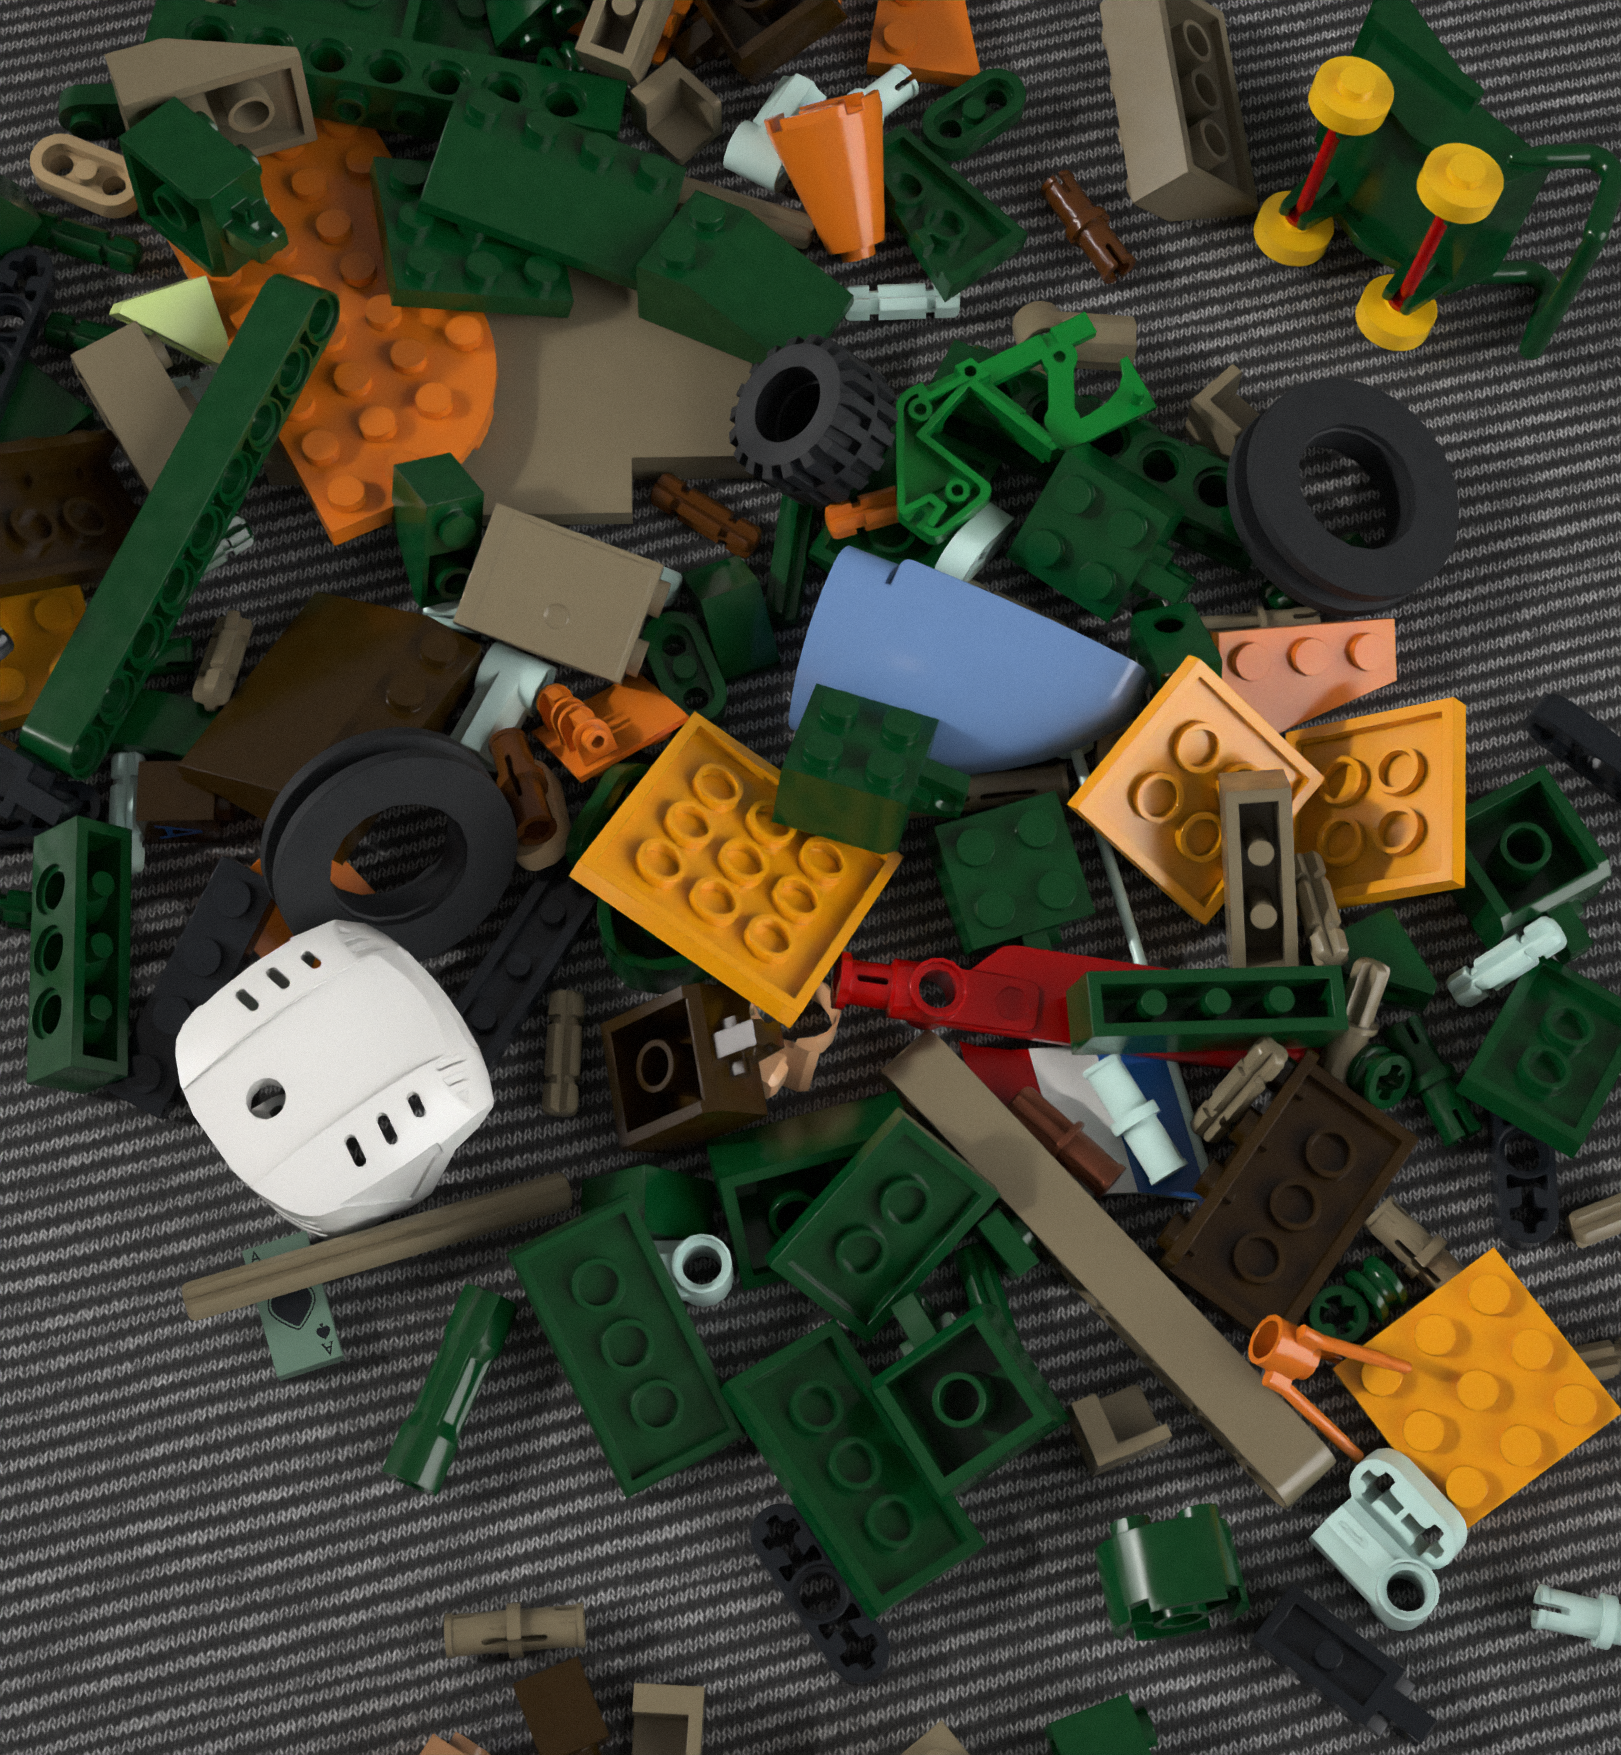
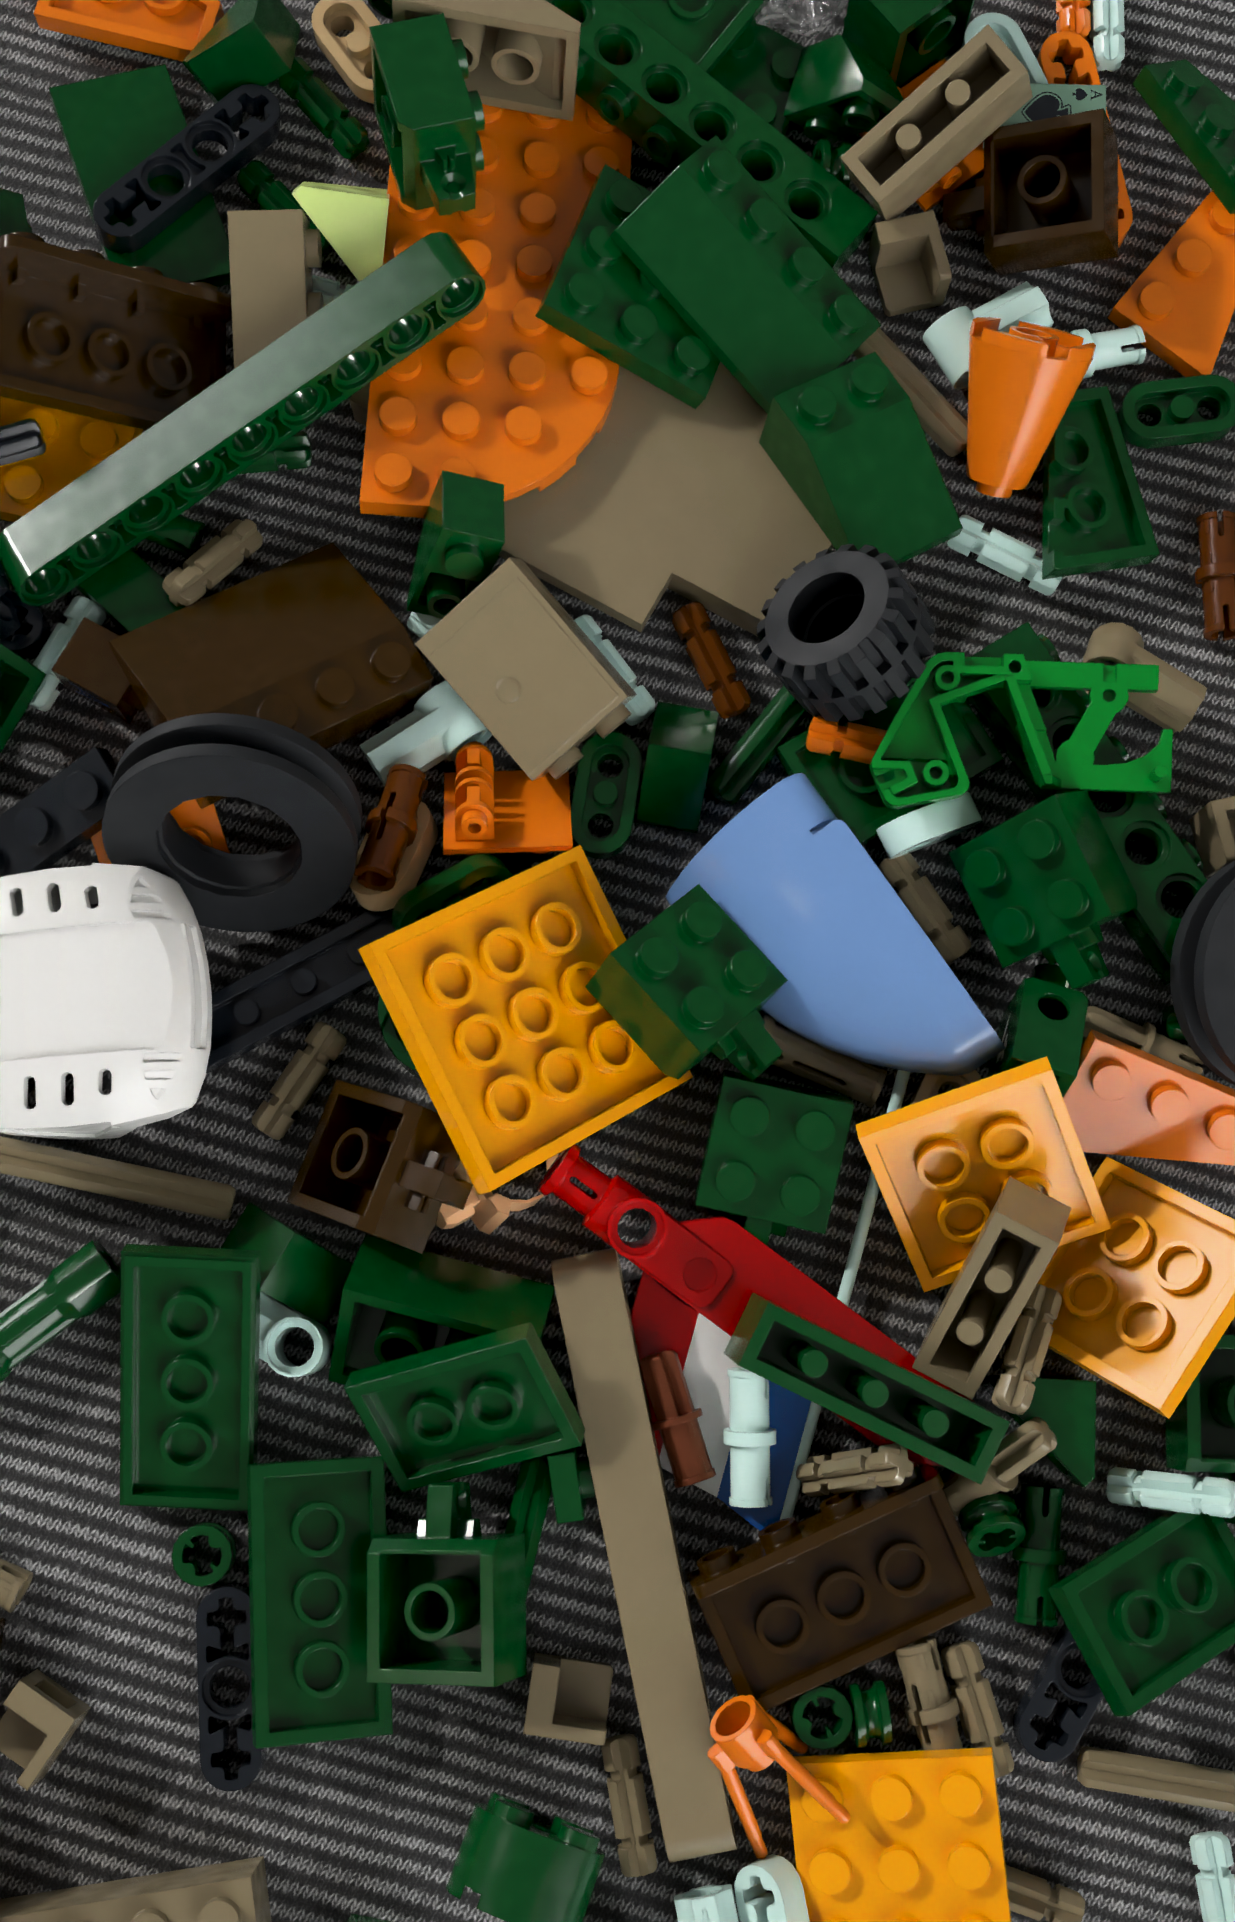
camera: 30 degrees right, 10 degrees up
(721, 1517) = (190, 1569): none -> dark green bush
(1223, 1487) = (629, 1805): none -> dark tan axle
(1464, 1237) = (976, 1702): none -> dark tan axle

